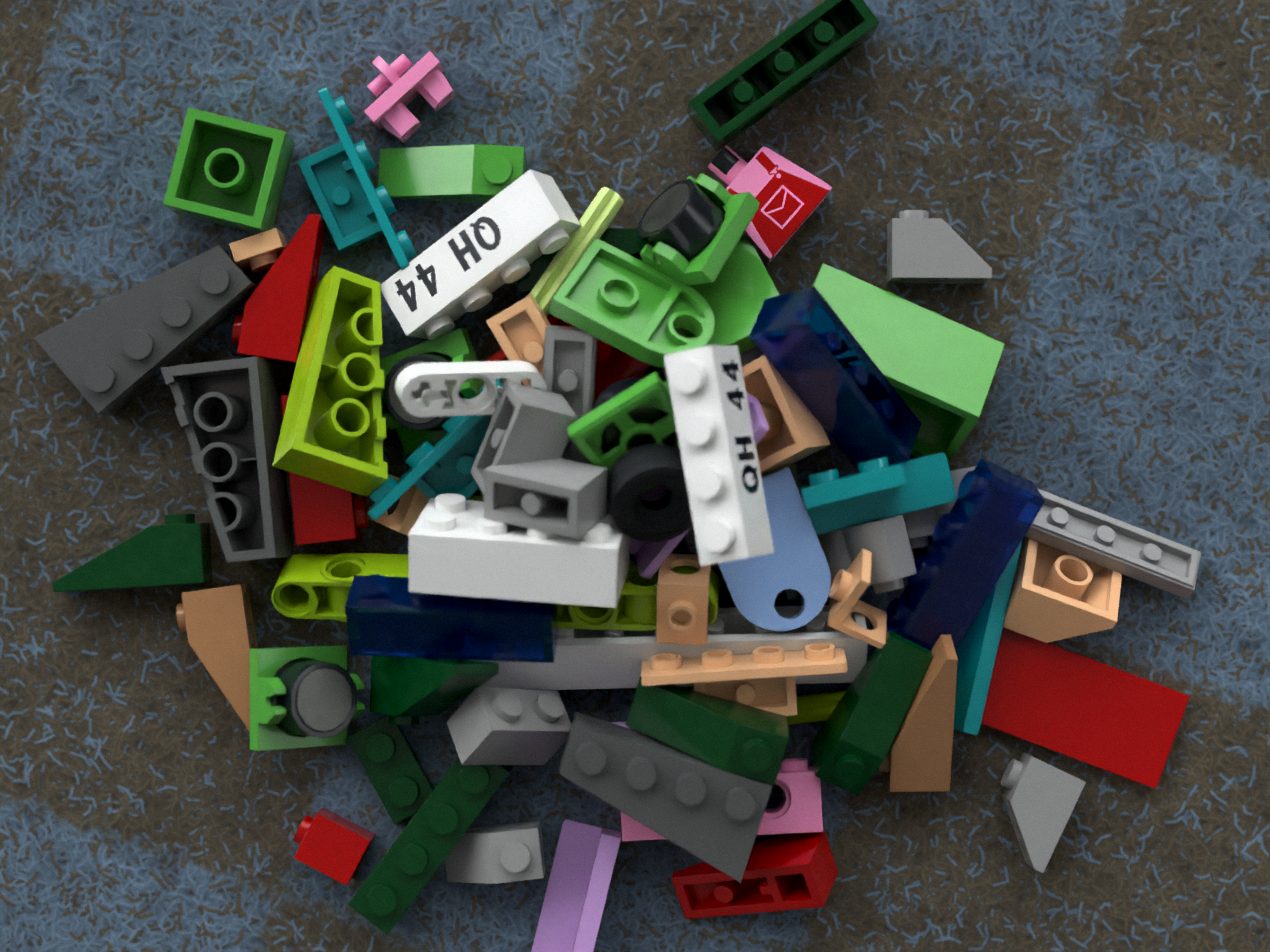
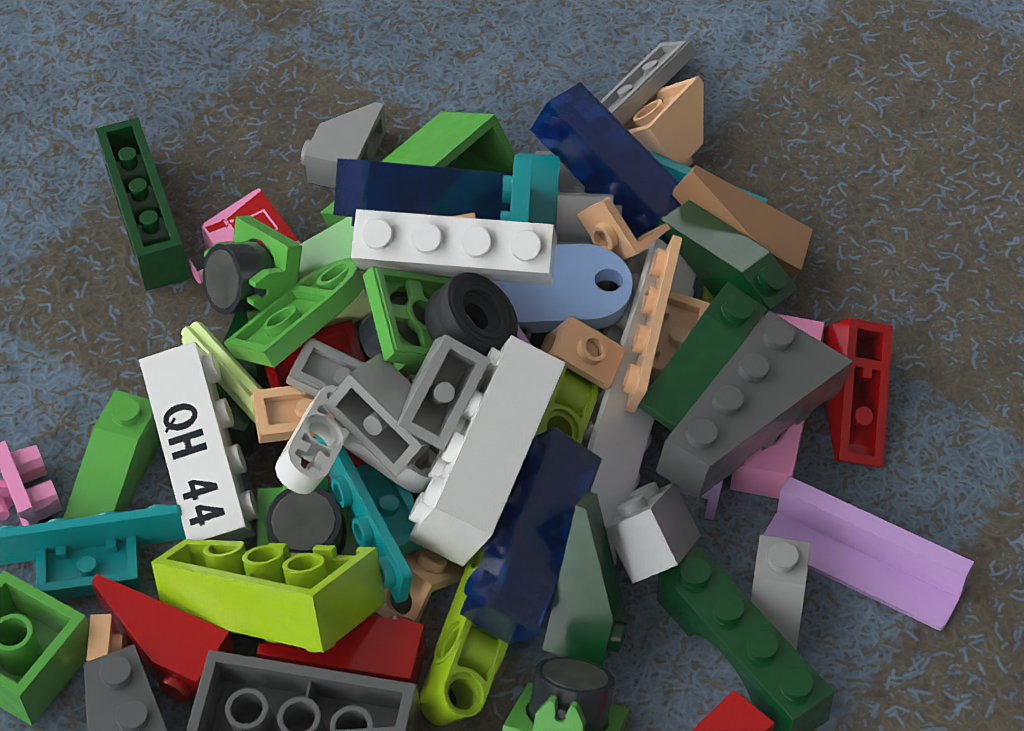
camera: 70 degrees left, 35 degrees down
(392, 768) = (666, 673): dark green plate -> none
(1039, 805) = (845, 183): light grey slope -> none
(1082, 708) = (773, 138): red tile -> none

